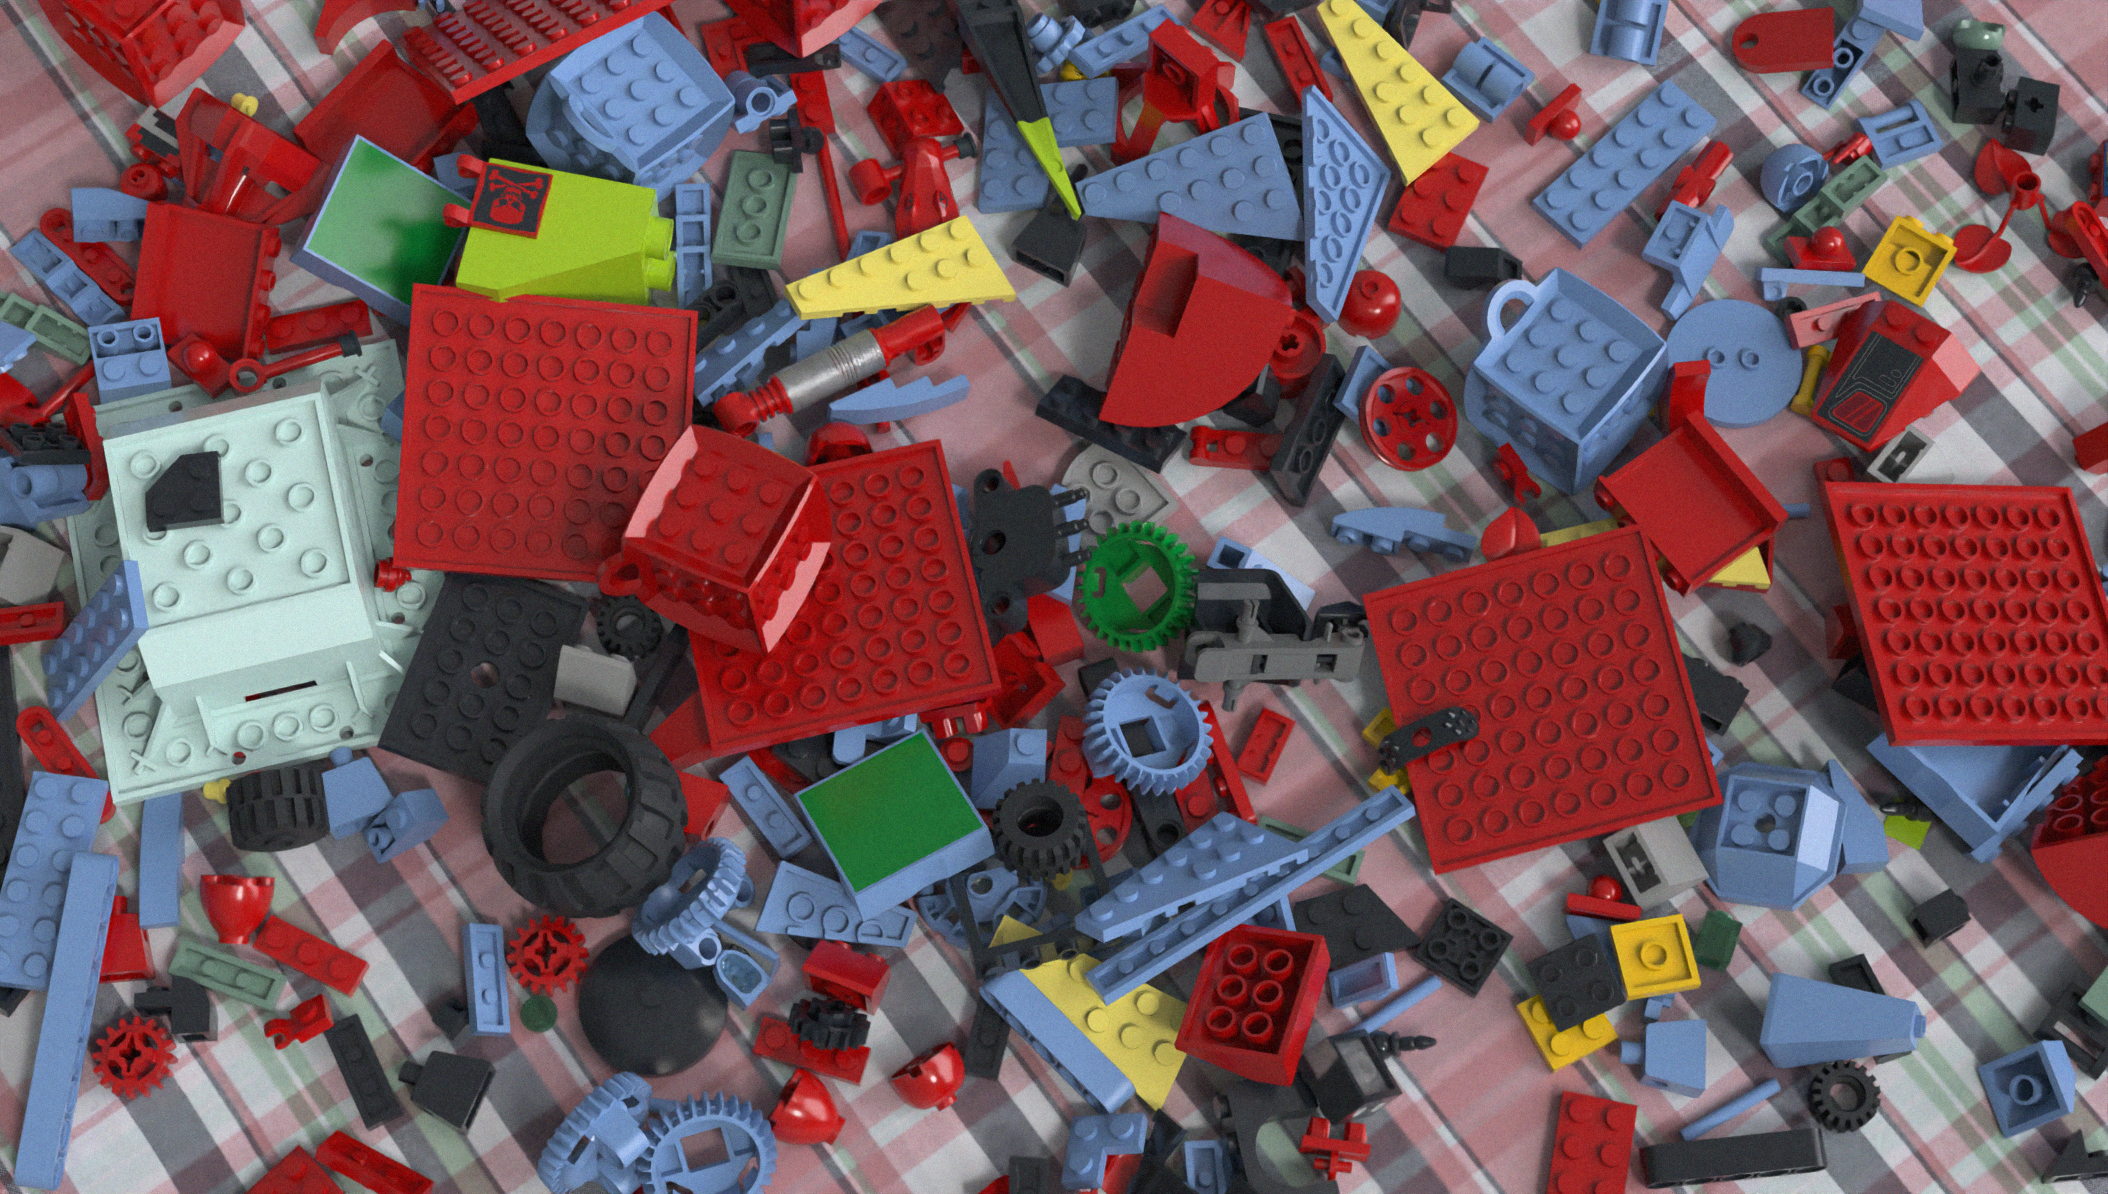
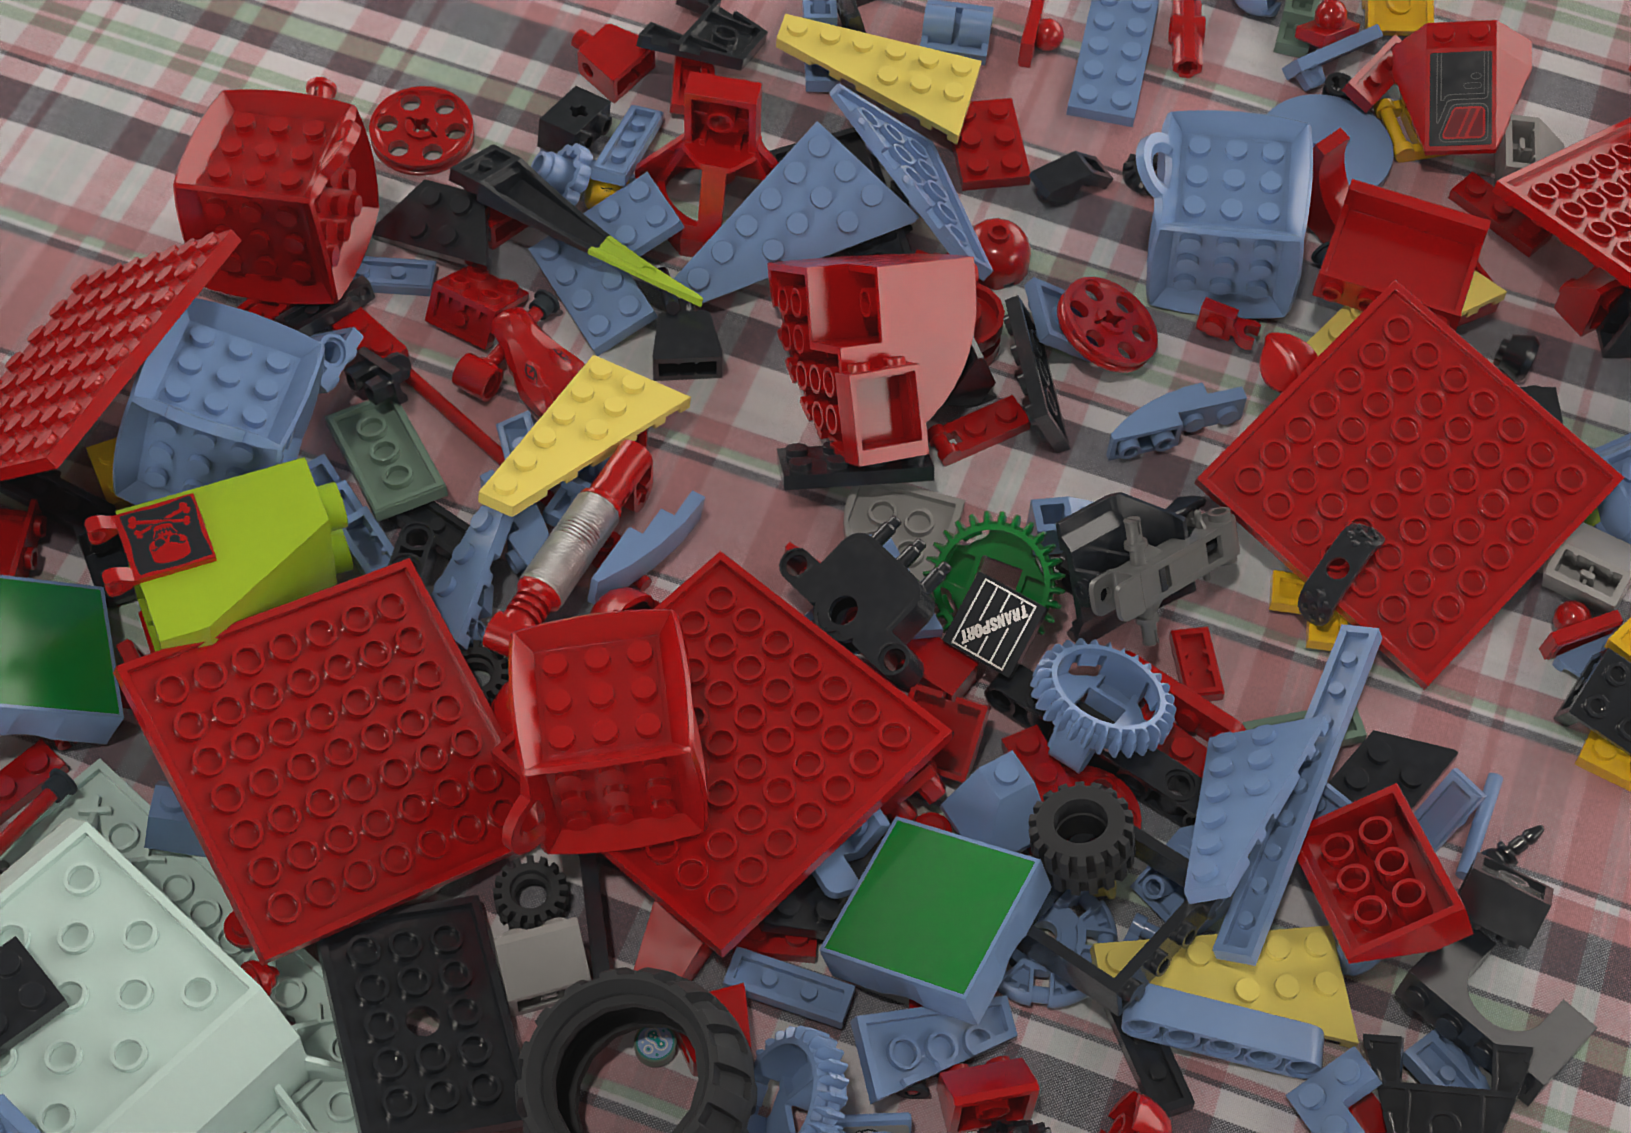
camera: 35 degrees left, 10 degrees down
(448, 175) = (60, 567): medium blue brick -> none
(1111, 621) = (995, 624): none -> black tile
(1129, 427) = (912, 411): none -> red window
(1295, 58) = (791, 96): red plate -> none
(1352, 1147) = (1545, 965): red hips -> none
(1462, 948) = (1493, 737): black tile -> none
(1687, 246) = (1219, 70): medium blue plate -> none

